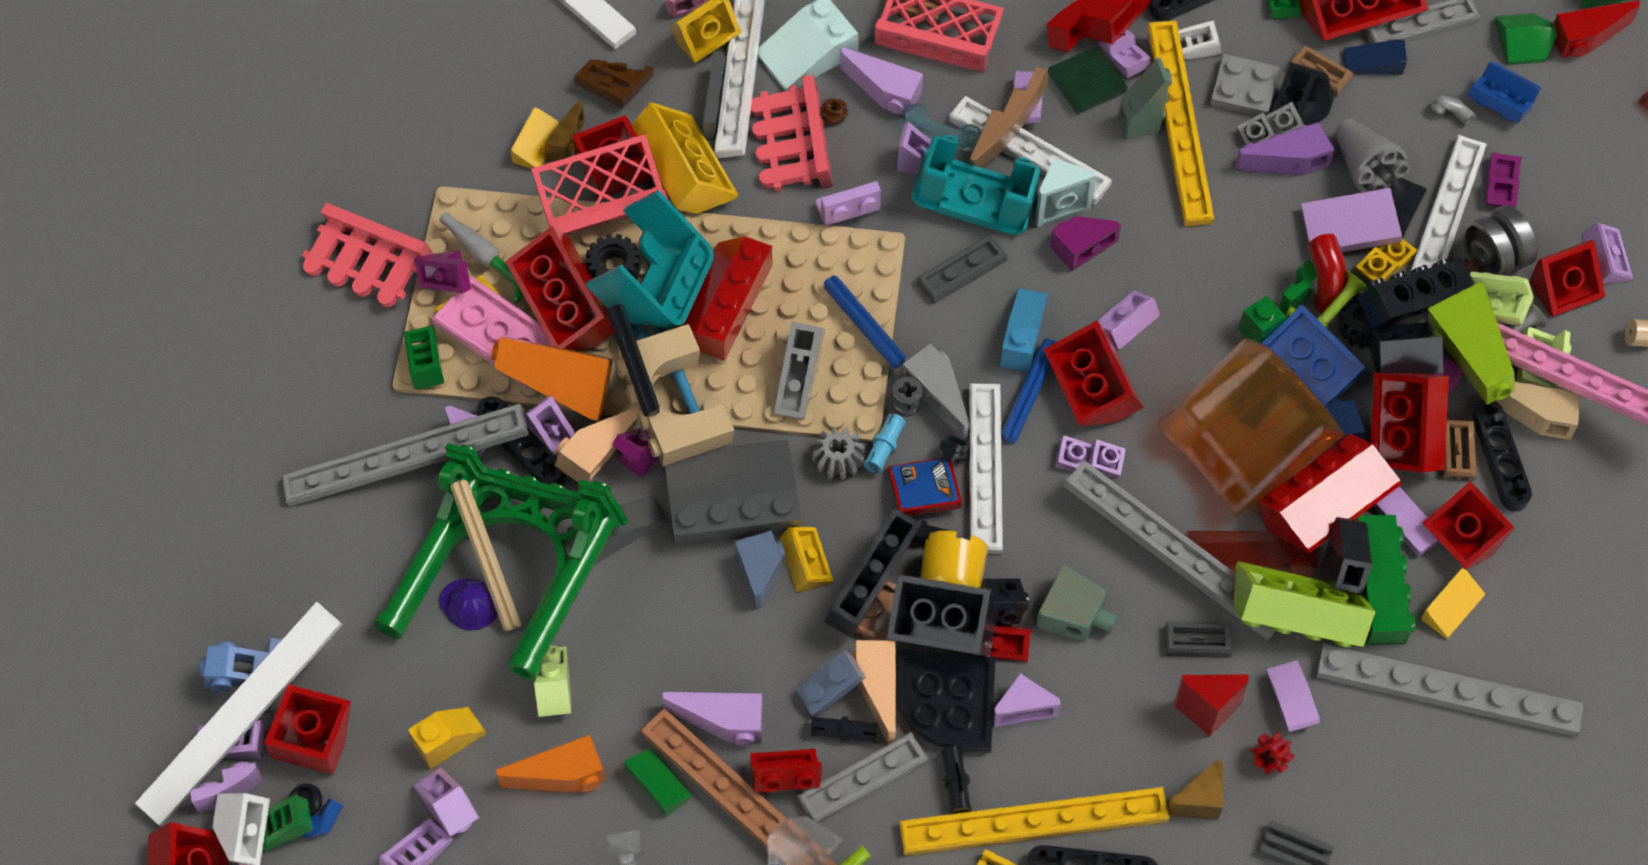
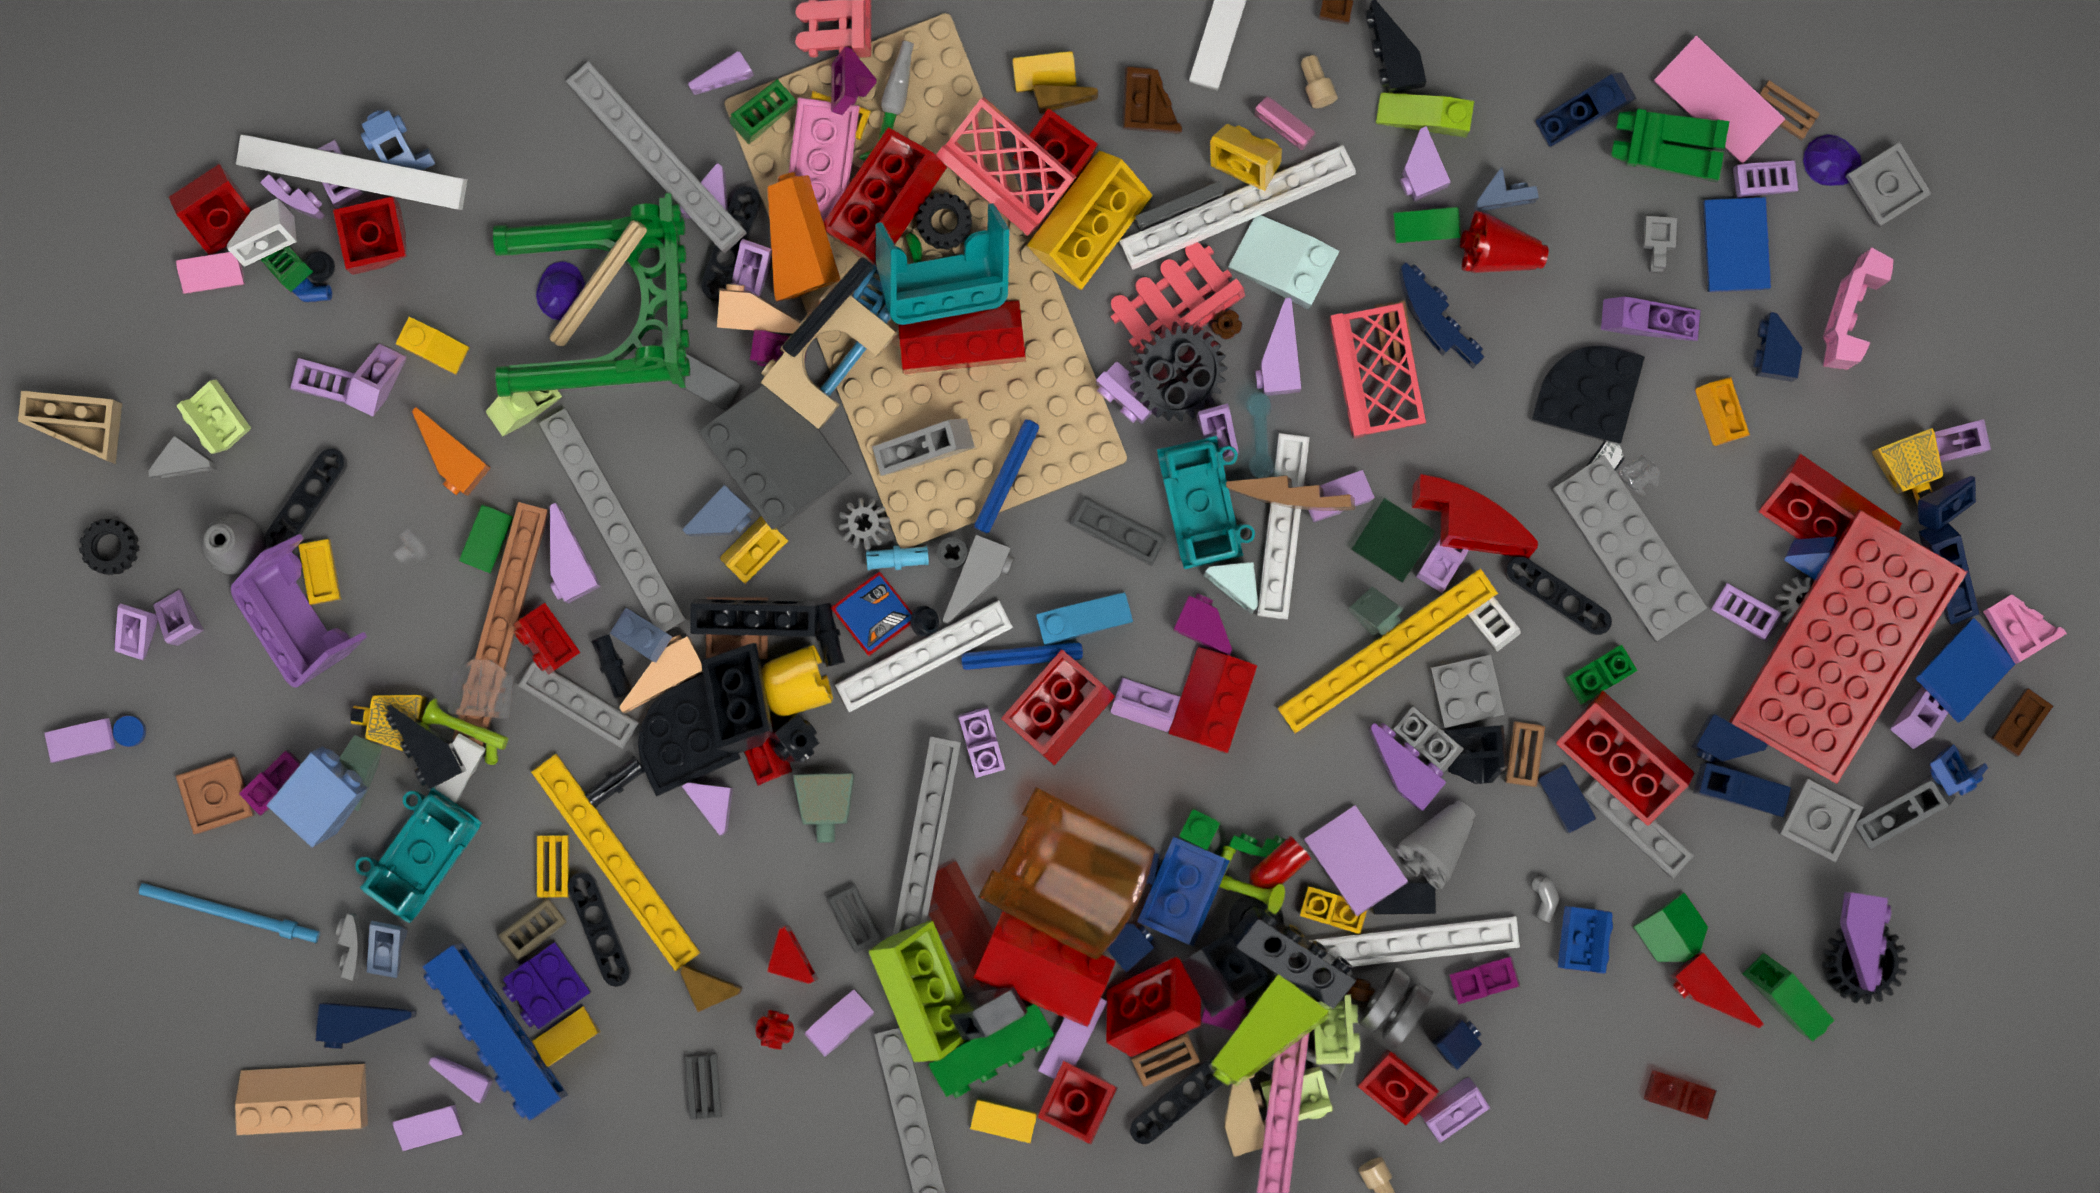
camera: 65 degrees right, 25 degrees up
(371, 367) = (724, 73): none -> lavender slope
(703, 663) = (612, 521): none -> light grey plate
(852, 150) = (1165, 350): none -> black gear
(1153, 260) = (1213, 700): none -> red slope
(1553, 220) = (1458, 1043): none -> dark blue slope

